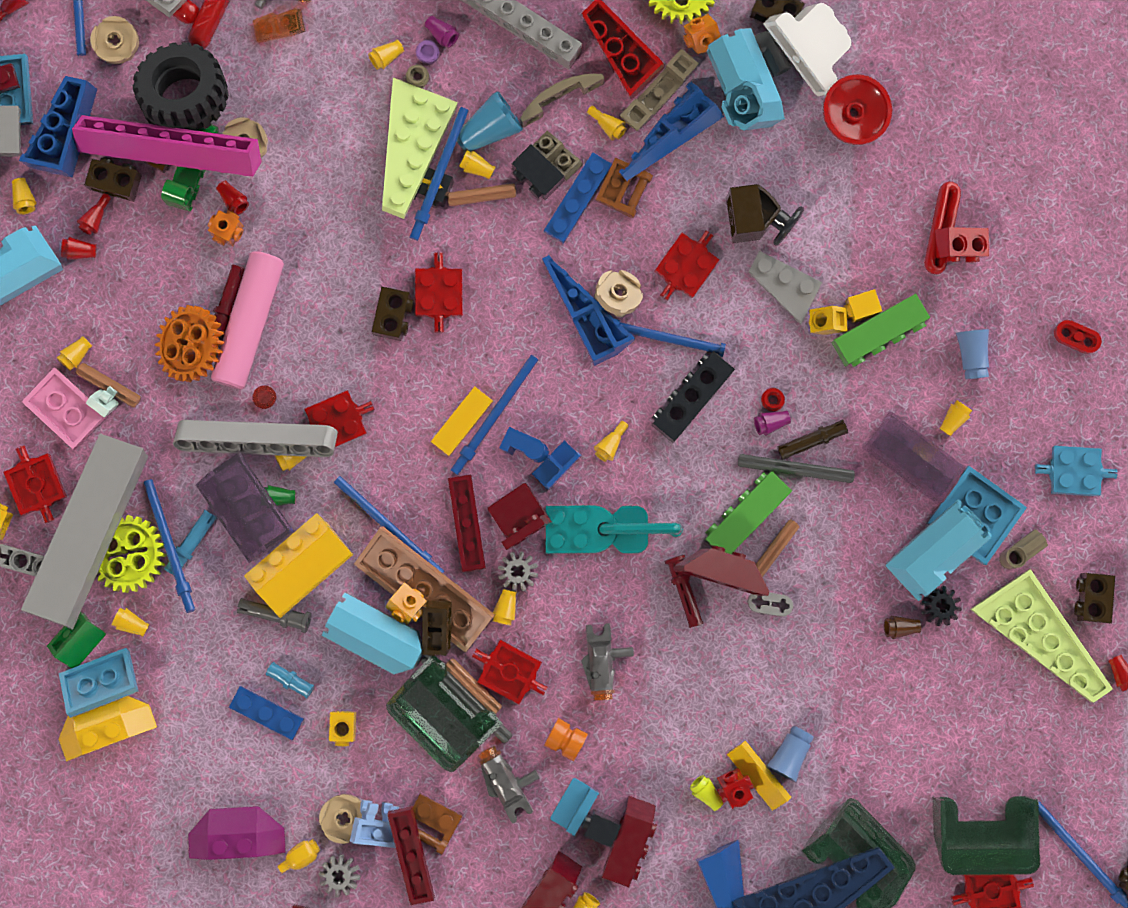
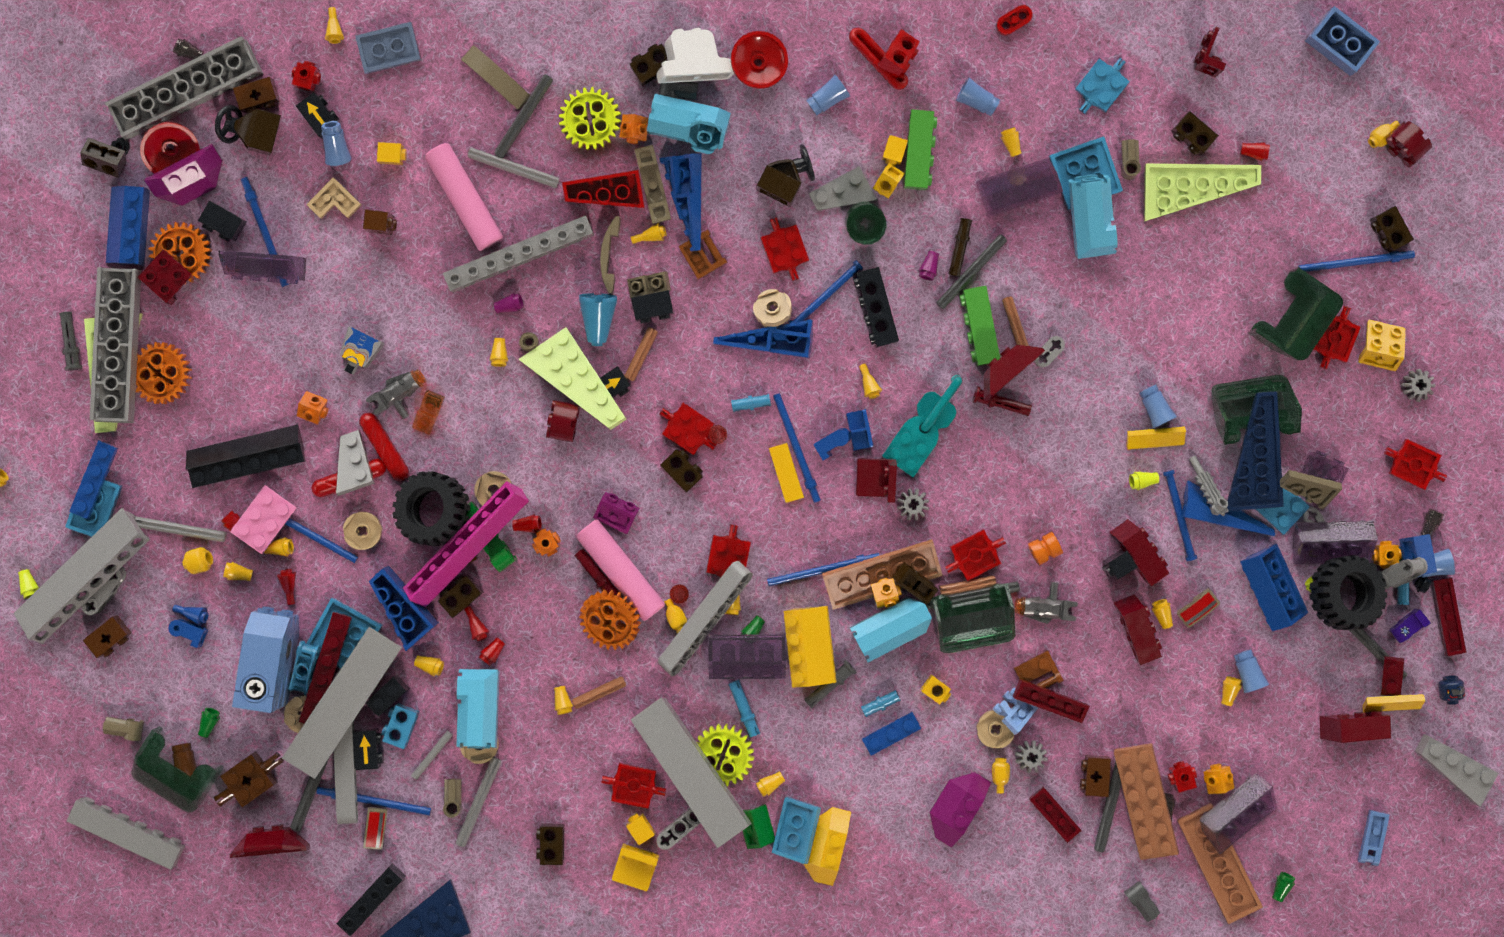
camera: 55 degrees left, 5 degrees up
(63, 408) = (595, 732): bright pink plate -> none
(103, 401) = (609, 703): light aqua tile -> none
(183, 588) = (772, 732): blue bar -> none
(238, 407) = (675, 616): none -> yellow plant
(304, 277) = (616, 512): none -> magenta bracket
(359, 160) = (562, 421): none -> dark red brick
(422, 216) = (631, 405): blue bar -> none
(427, 52) = (516, 323): medium lavender tile -> none
(453, 325) = (718, 434): none -> clear red plate
(466, 523) = (857, 516): dark red plate -> none
(476, 165) = (618, 344): yellow cone -> none
(505, 608) = (931, 529): yellow cone -> none
(508, 337) = (751, 402): none -> dark azure pin
(574, 805) = (1092, 572): dark azure panel -> none
(578, 197) = (687, 290): blue plate -> none
(599, 662) = (1009, 491): flat silver piece -> none
(692, 863) = (1178, 510): none -> blue bar
(735, 788) = (1153, 459): red brick -> none
(736, 886) = (1209, 488): none -> light grey piece
(768, 311) = (876, 227): none -> clear green wheel
(773, 392) = (910, 259): red plate -> none
(869, 202) = (828, 95): none -> medium blue plant
(899, 626) = (1124, 275): reddish brown cone -> none
(934, 611) = (1131, 247): black gear -> none

